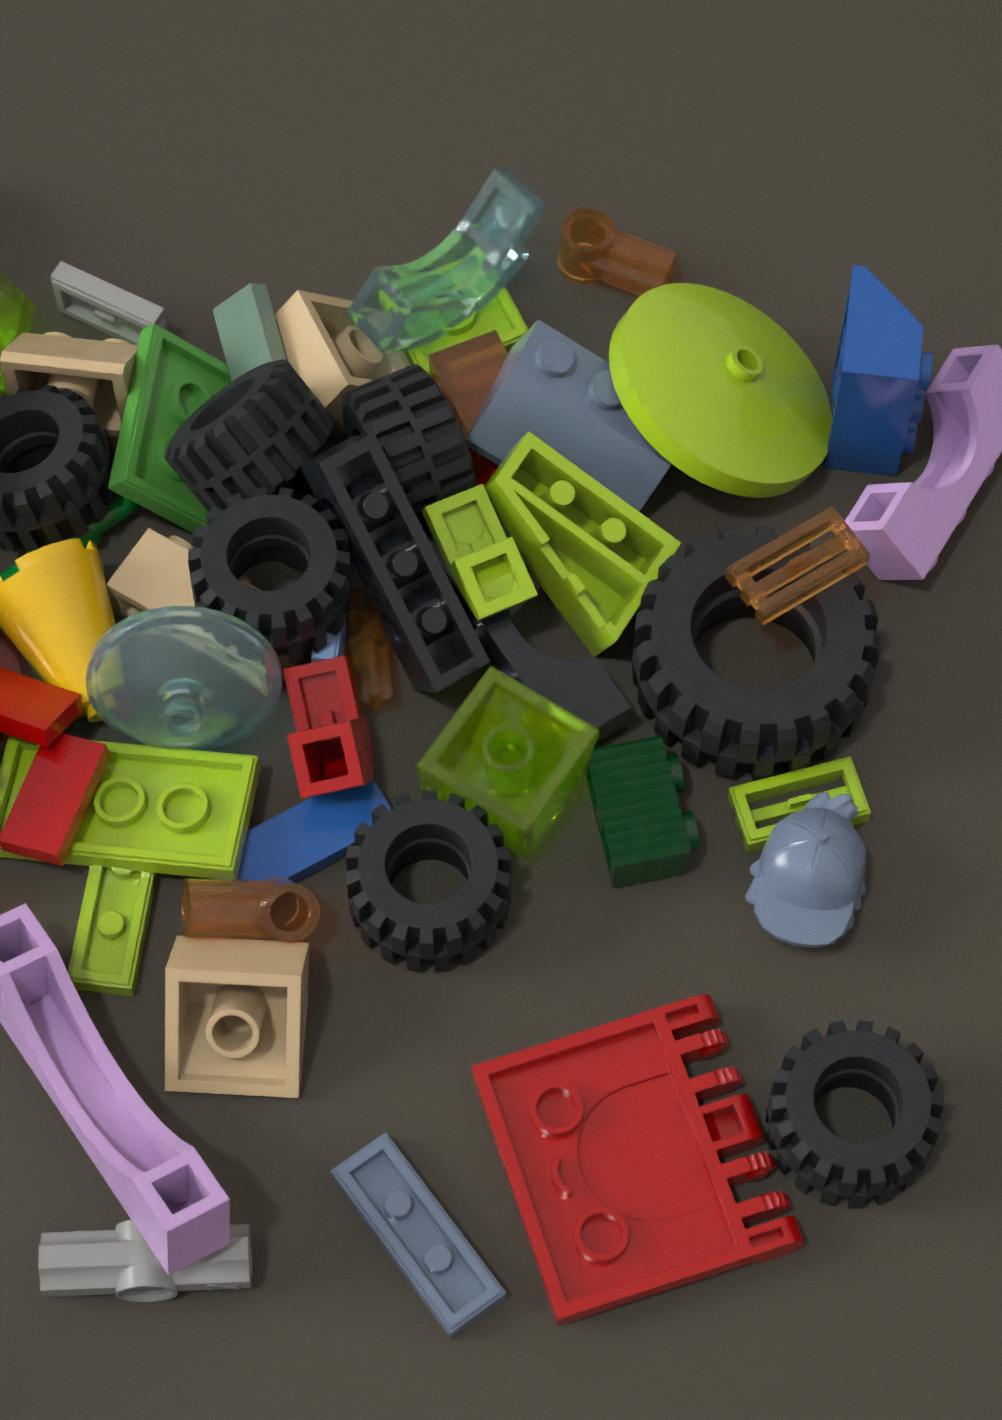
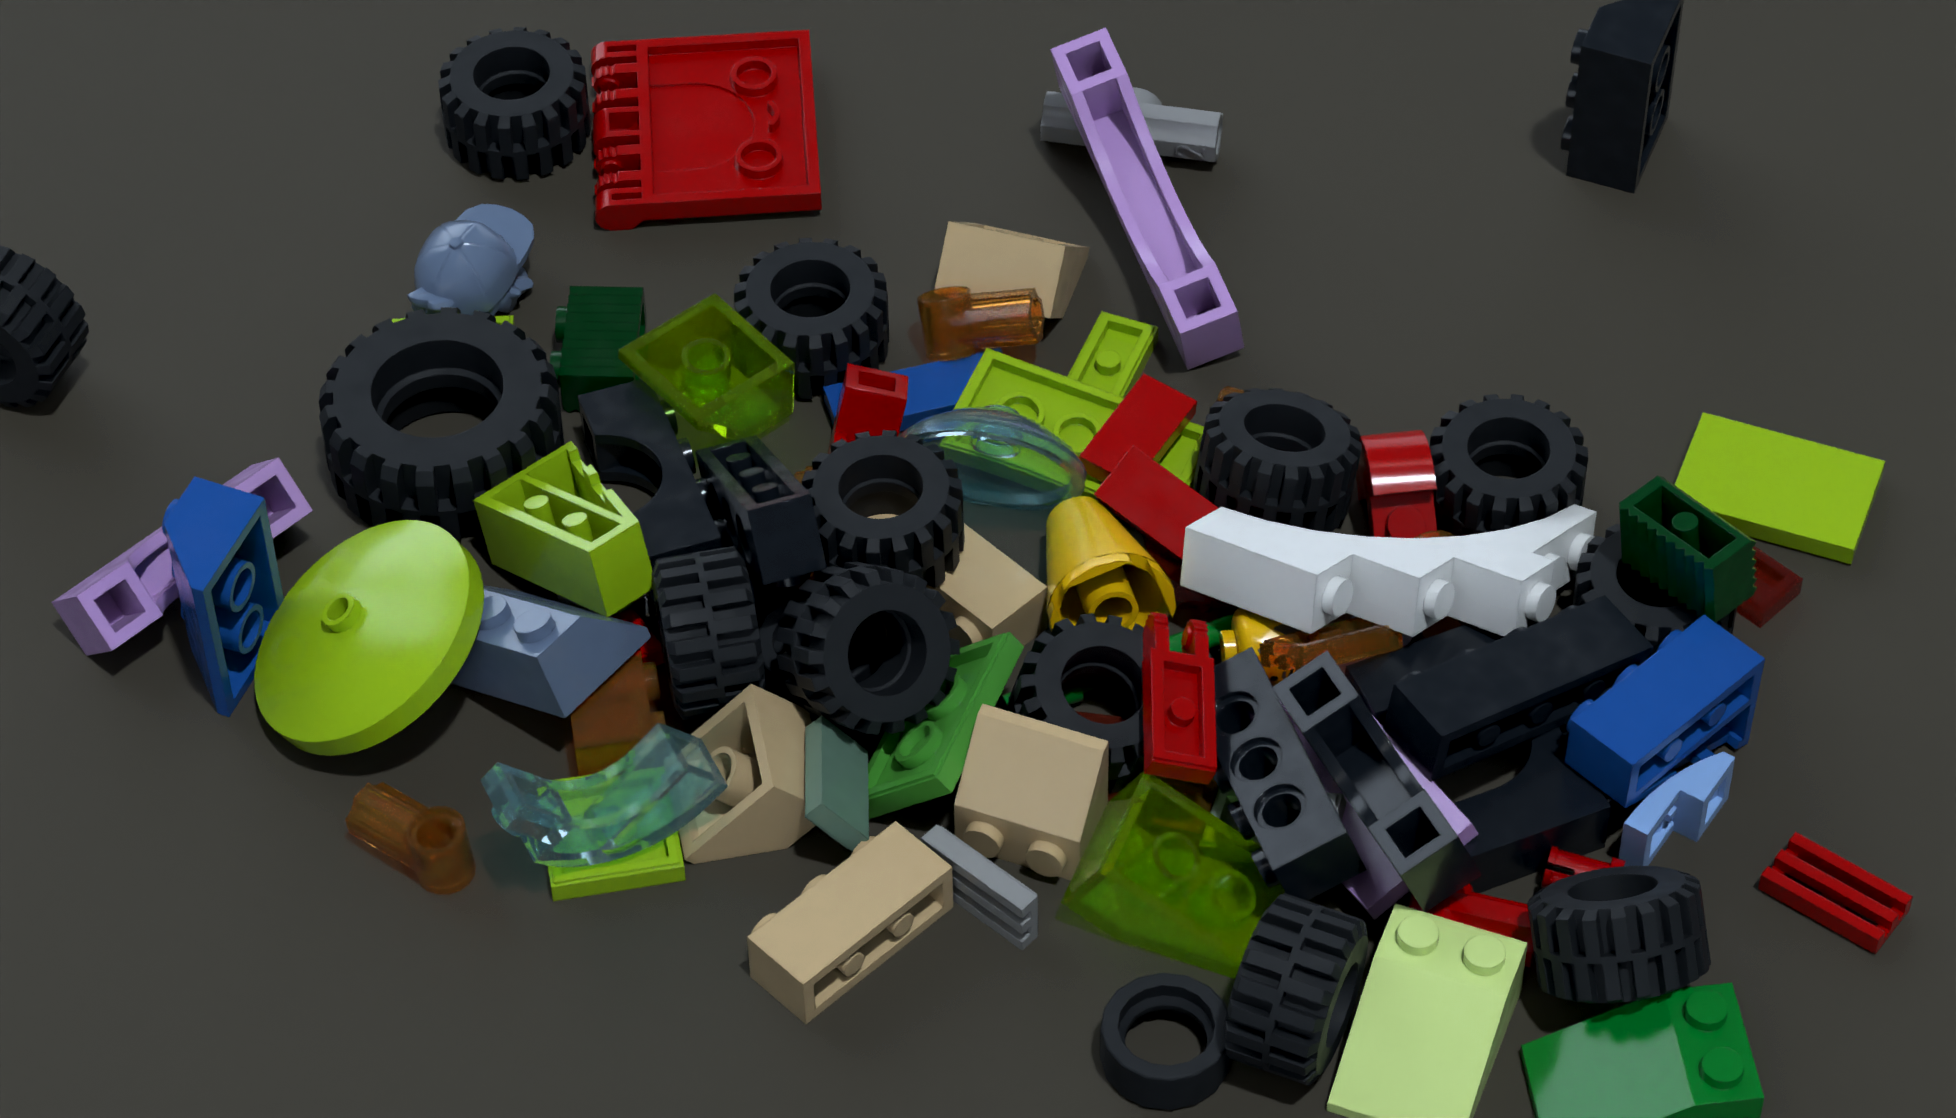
camera: 165 degrees left, 15 degrees down
(217, 251) = (849, 921): none -> tan brick
(418, 1235) = (903, 120): sand blue tile -> none
(479, 553) = (673, 504): lime slope -> none
(755, 593) = (380, 425): clear orange tile -> none

